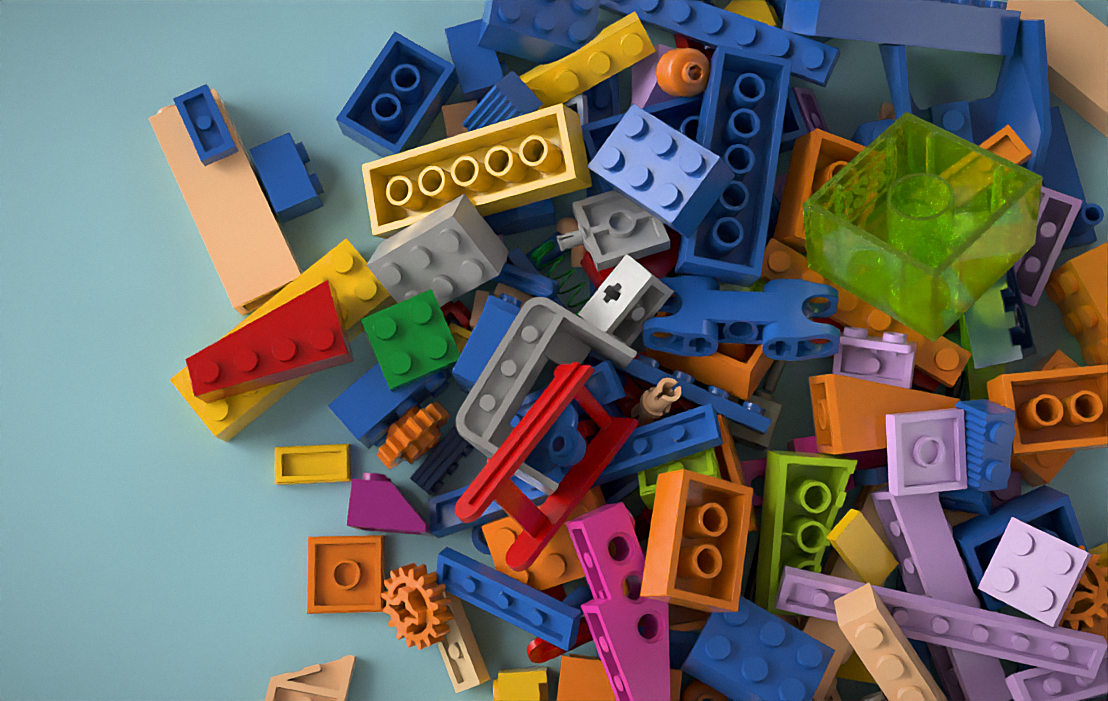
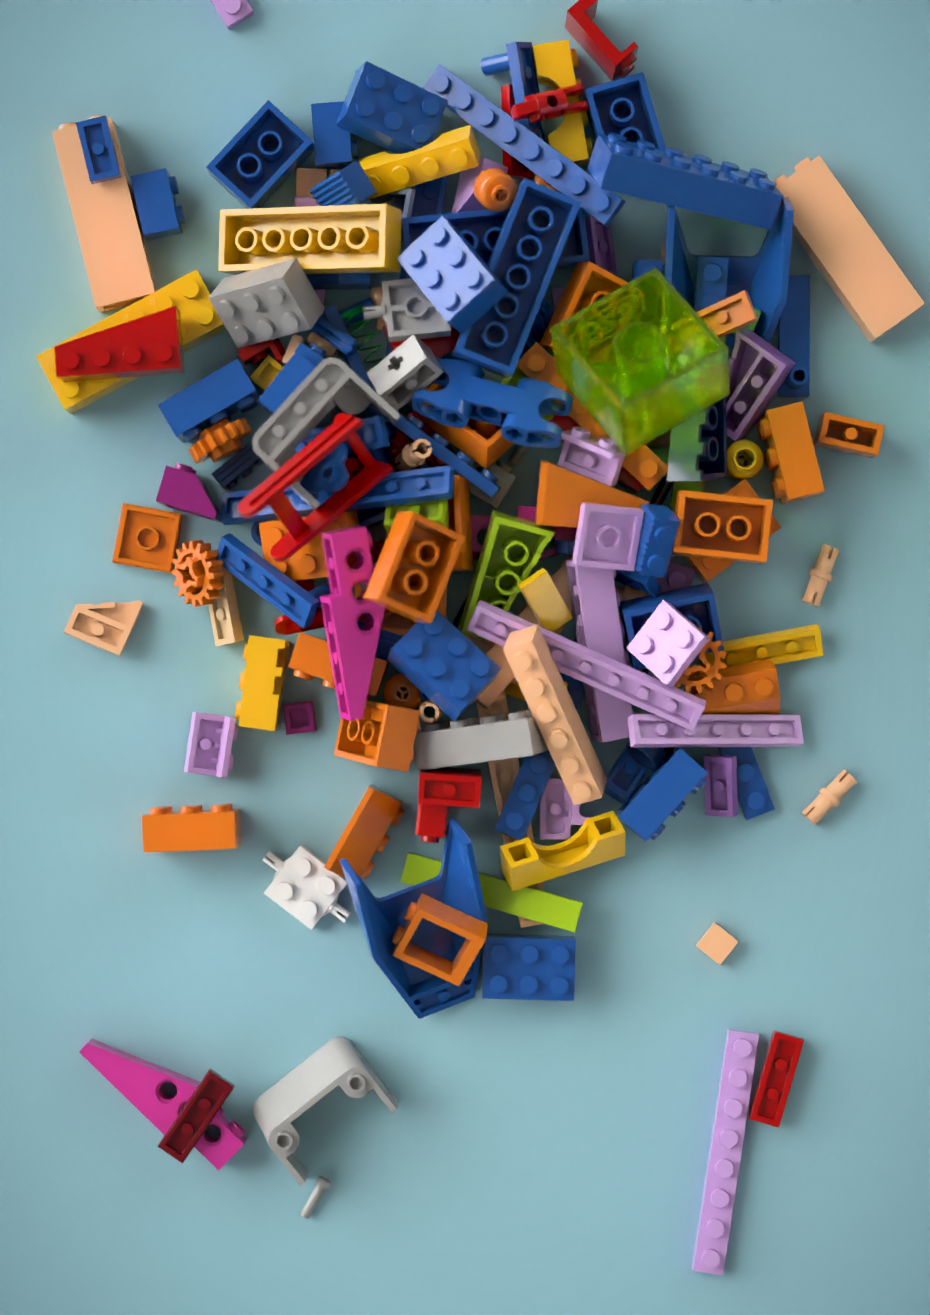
camera: 15 degrees right, 10 degrees up
(313, 464) = (136, 446): yellow tile -> none
(411, 340) = (232, 366): green plate -> none
(1050, 327) = (751, 454): none -> yellow head

